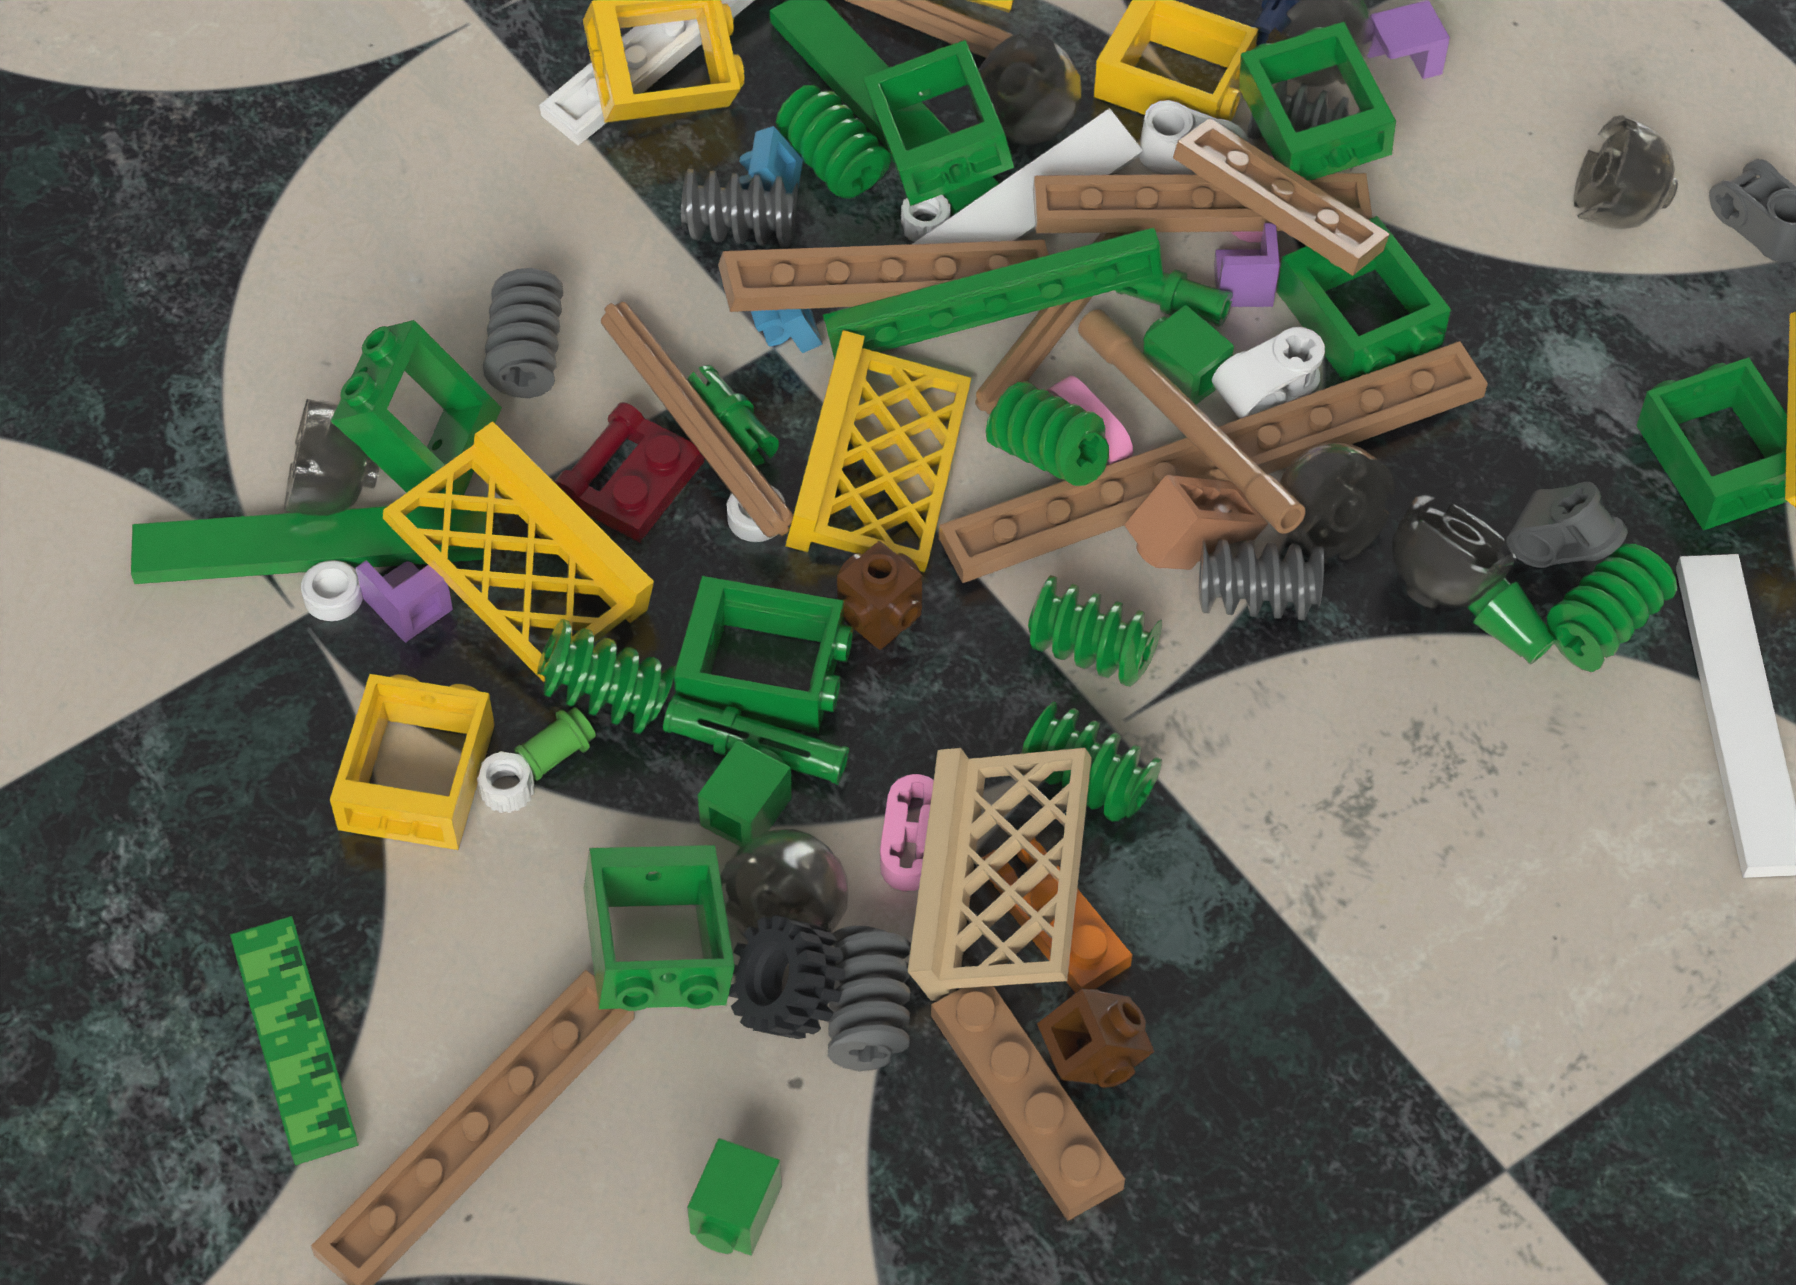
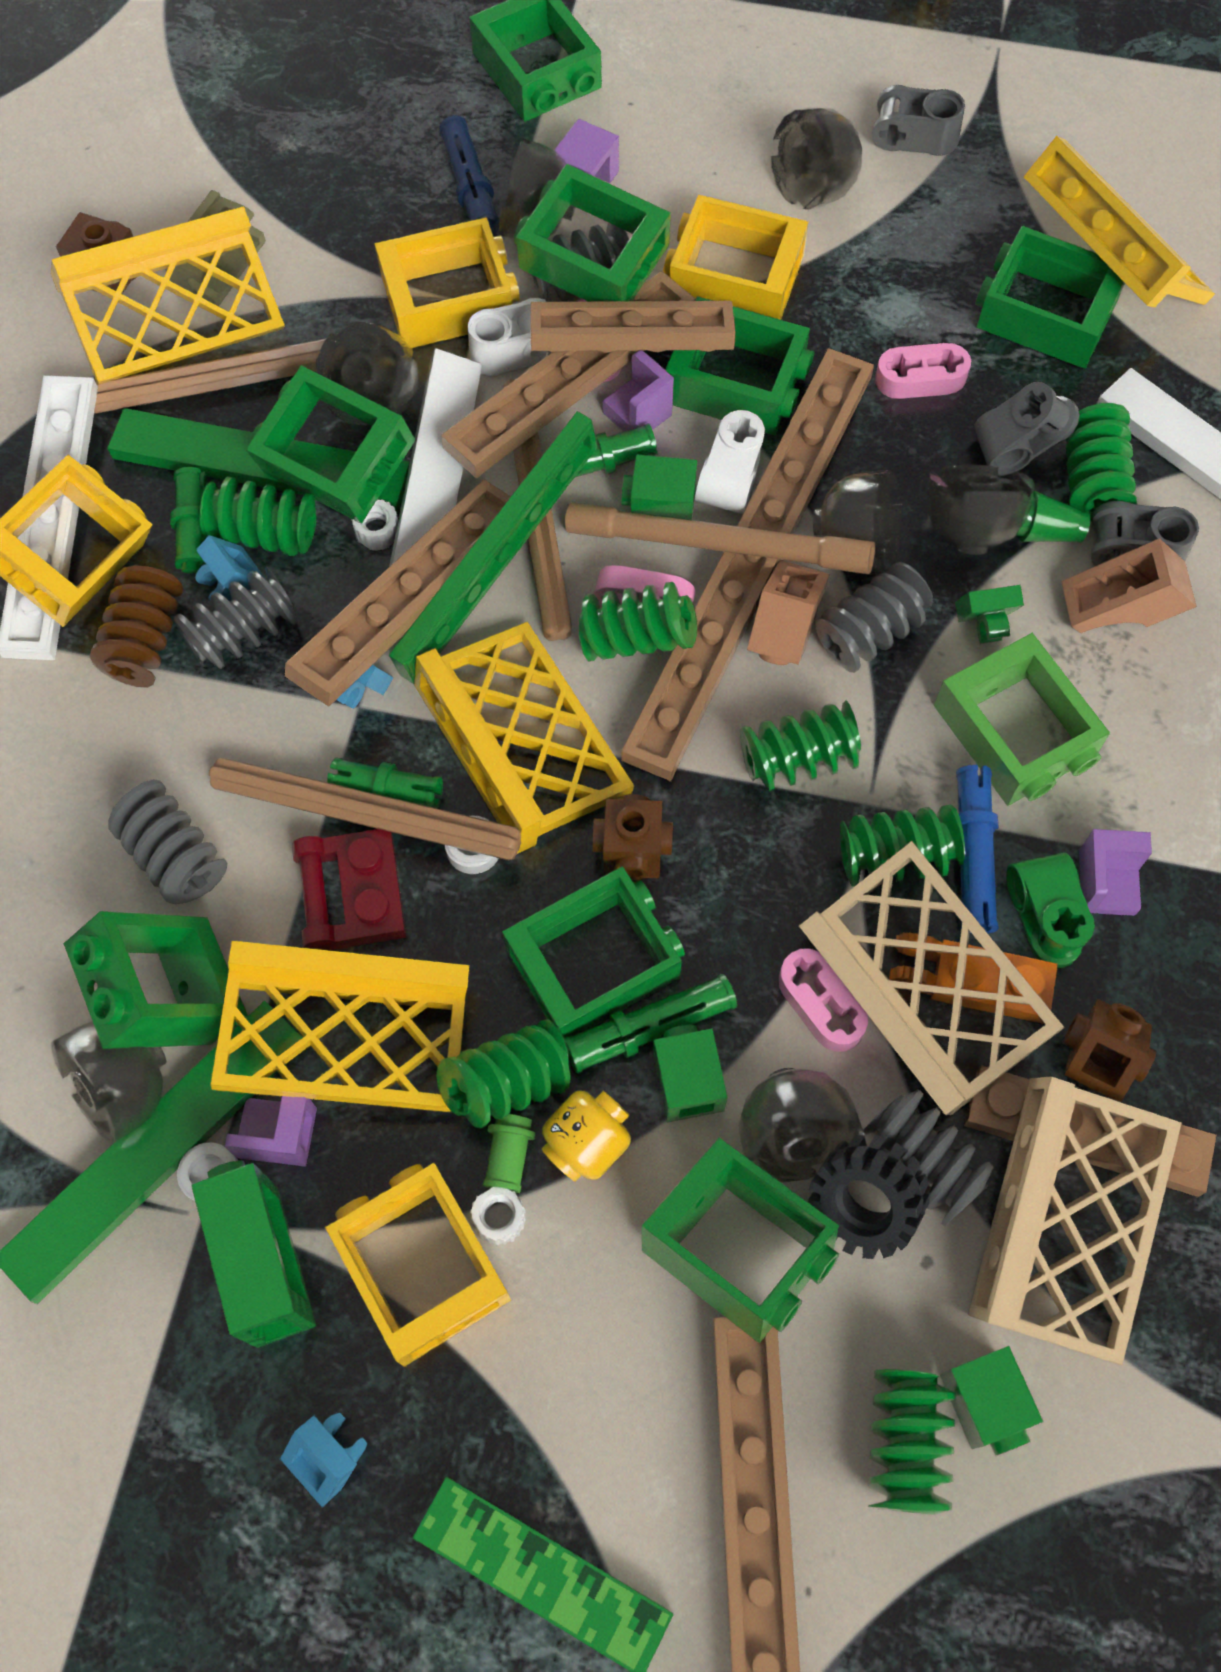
camera: 40 degrees left, 10 degrees up
(218, 828) = (319, 1459): none -> dark azure tile
(302, 653) = (252, 1254): none -> green window
(622, 771) = (586, 1135): none -> yellow head
(639, 1168) = (911, 1442): none -> green piece
(655, 154) = (135, 624): none -> reddish brown piece
(772, 102) = (185, 518): none -> green pin
(905, 1082) = (1023, 1210): none -> tan fence
(1172, 910) = (1050, 898): none -> green piece
(1178, 803) = (978, 825): none -> blue pin
(1257, 926) = (1111, 870): none -> medium lavender panel
(1314, 702) = (1021, 660): none -> bright green window
(1375, 648) = (990, 610): none -> green tile
(1479, 258) = (745, 230): none -> yellow window
(1524, 723) = (1131, 588): none -> nougat arch
(1537, 423) = (922, 370): none -> bright pink beam
(1575, 690) = (1139, 527): none -> dark grey piece

